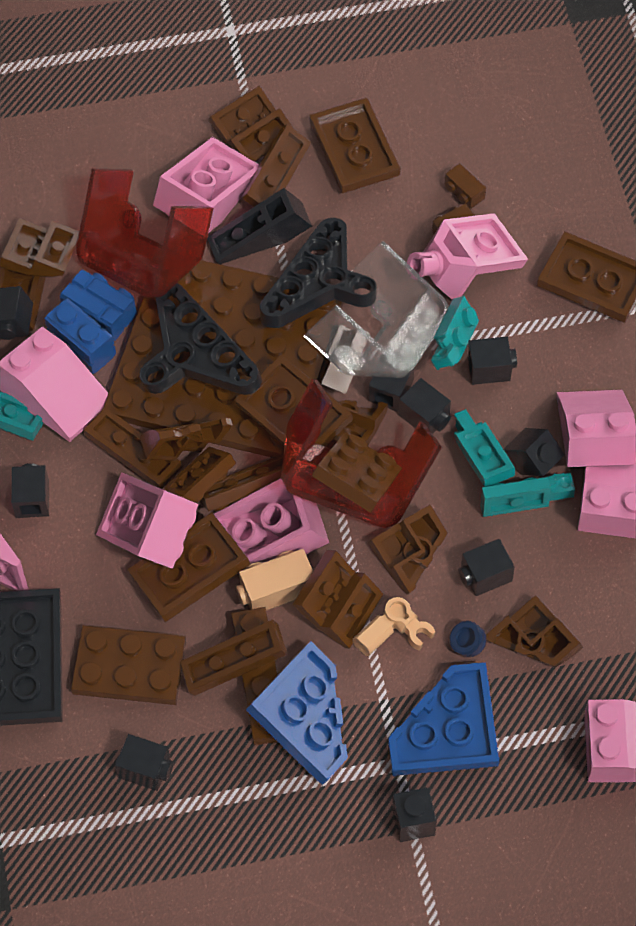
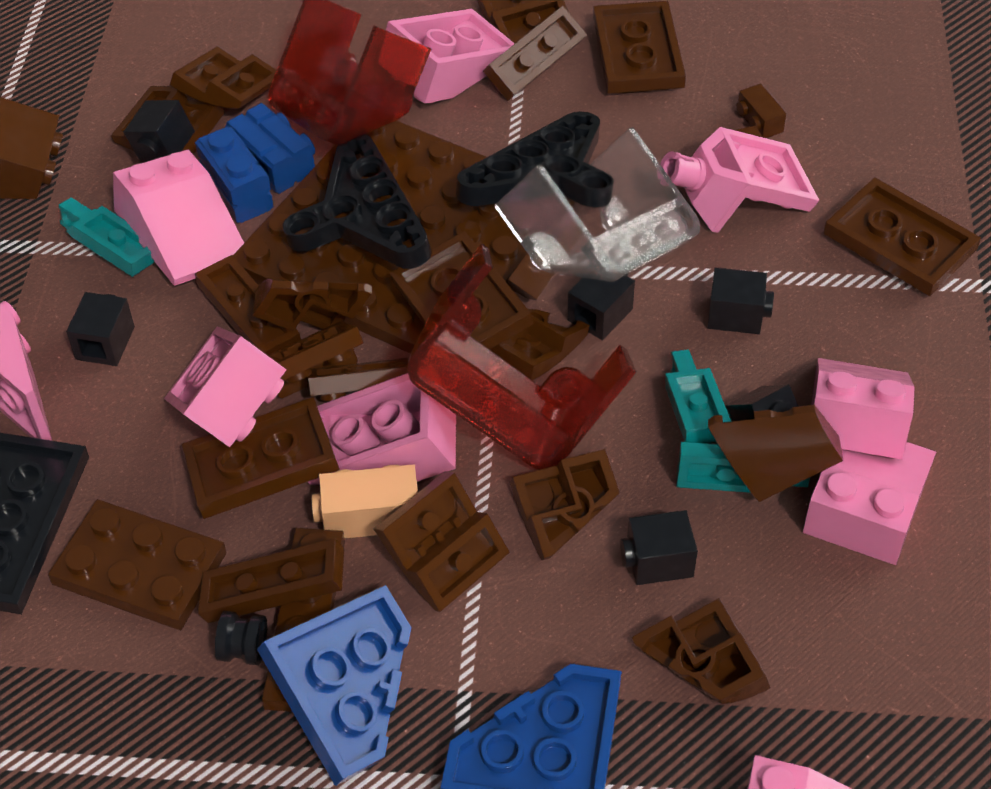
camera: 15 degrees right, 10 degrees down
(144, 762) = (100, 692): black brick -> none
(224, 701) = (240, 637): none -> black wheel
(261, 228) = (498, 105): black slope -> none
(357, 471) = (513, 379): reddish brown plate -> none
(396, 616) = (517, 584): light nougat bar -> none
(425, 405) = (639, 332): black brick -> none
(454, 333) = (697, 256): teal hinge -> none
(467, 639) = (607, 635): dark blue tile -> none
(551, 479) = (777, 447): none -> reddish brown slope

